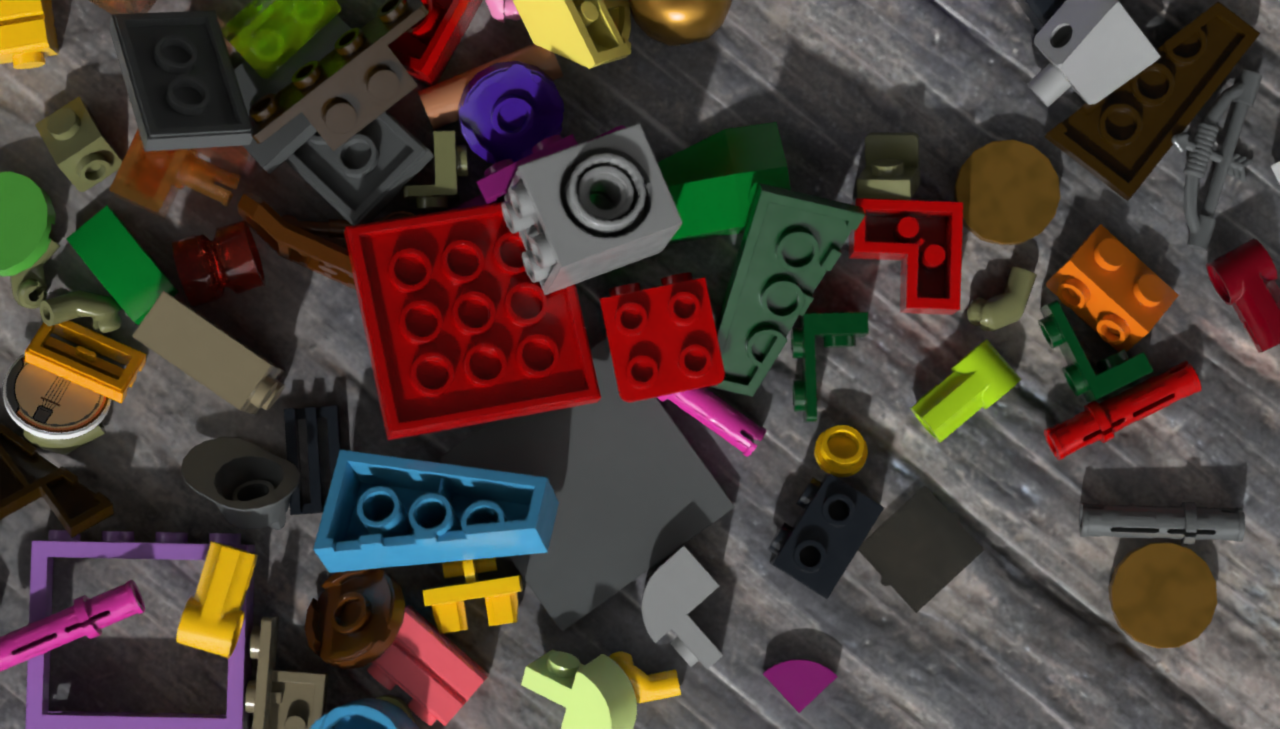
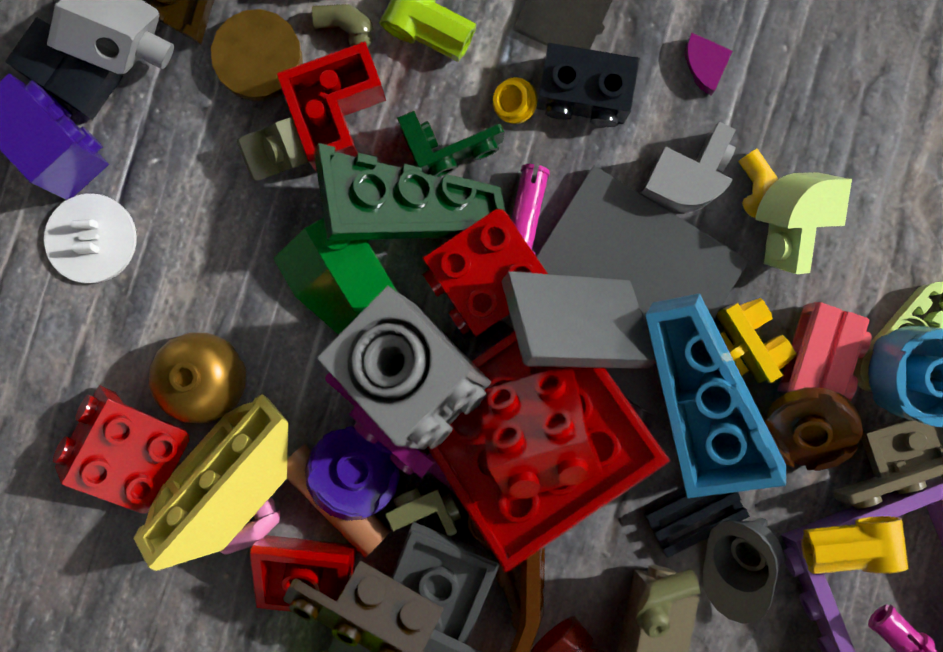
camera: 110 degrees left, 0 degrees up
(256, 366) = (658, 599): none -> olive arm
(471, 314) = (537, 434): none -> red bracket
(570, 407) = (577, 321): none -> tile

